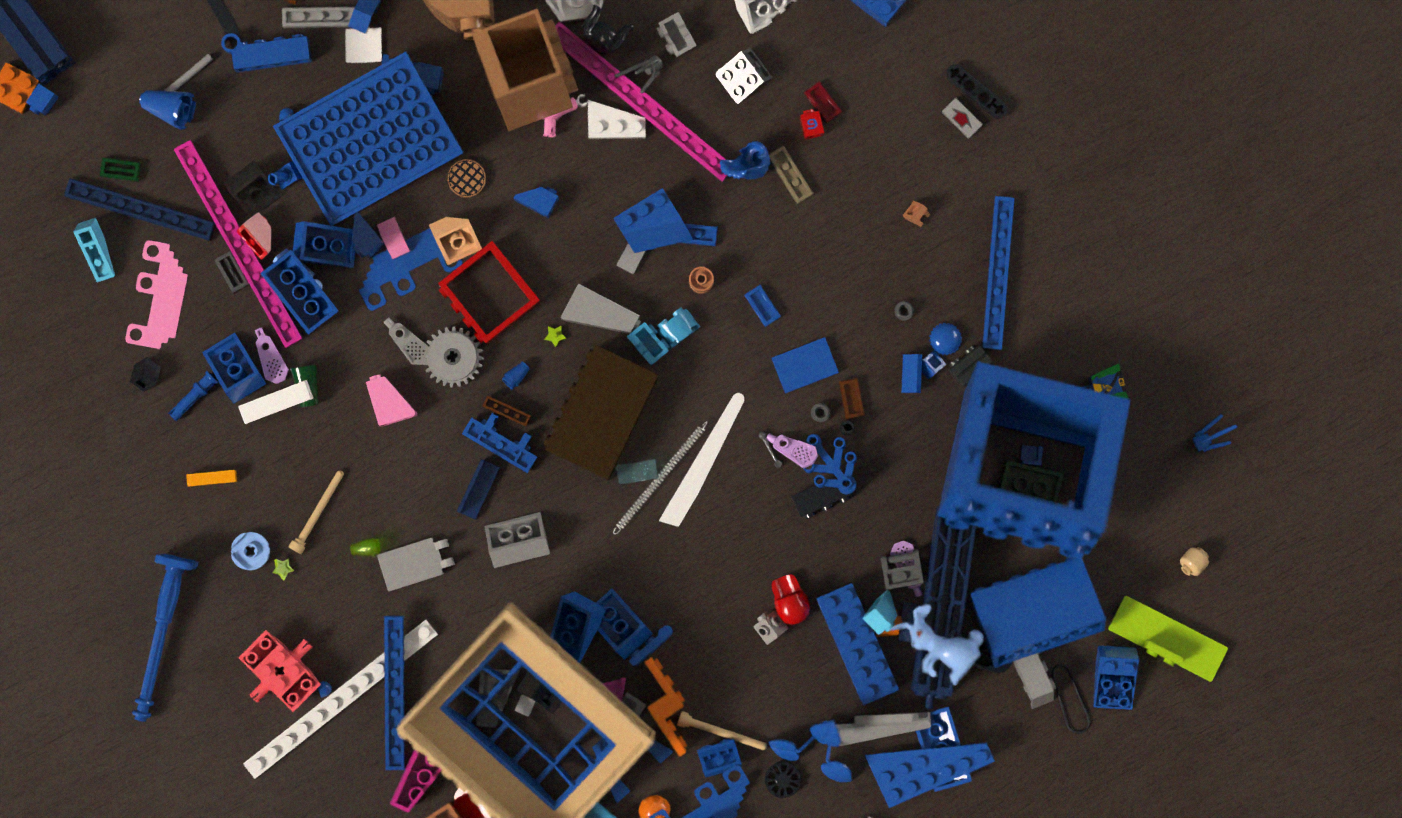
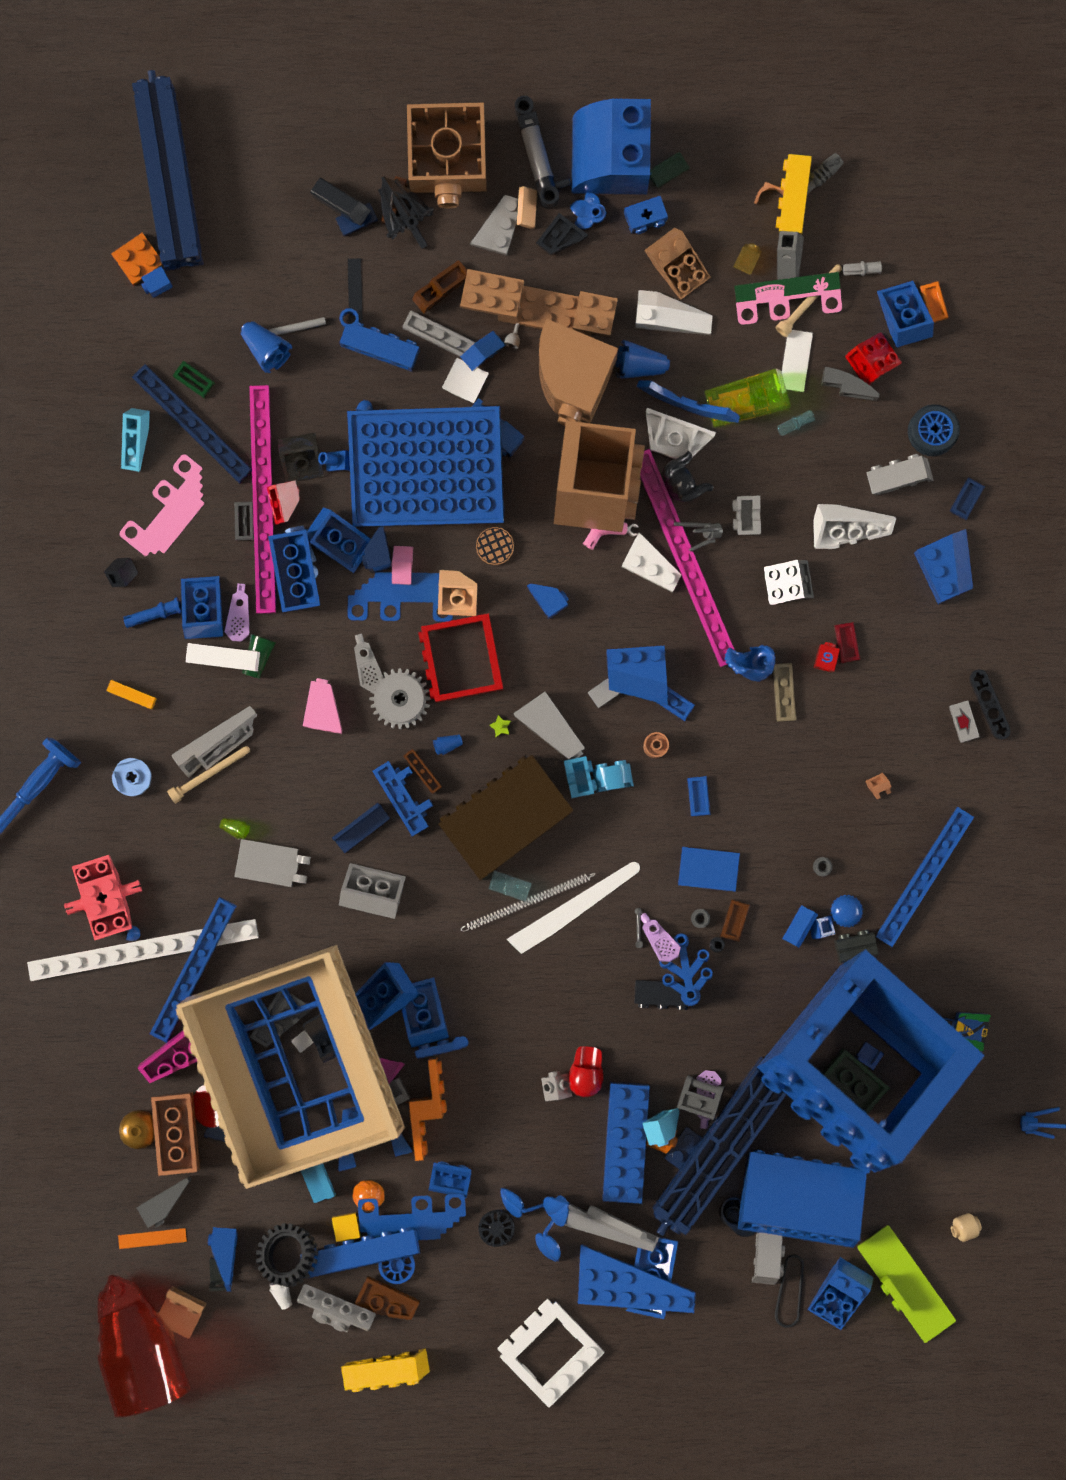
camera: 30 degrees right, 0 degrees up
(282, 568) = (152, 807): lime piece -> none
(310, 481) = (216, 743): none -> light grey wedge
(687, 720) = (438, 1130): tan piece -> none
(954, 652) = (709, 1198): light blue animal -> none

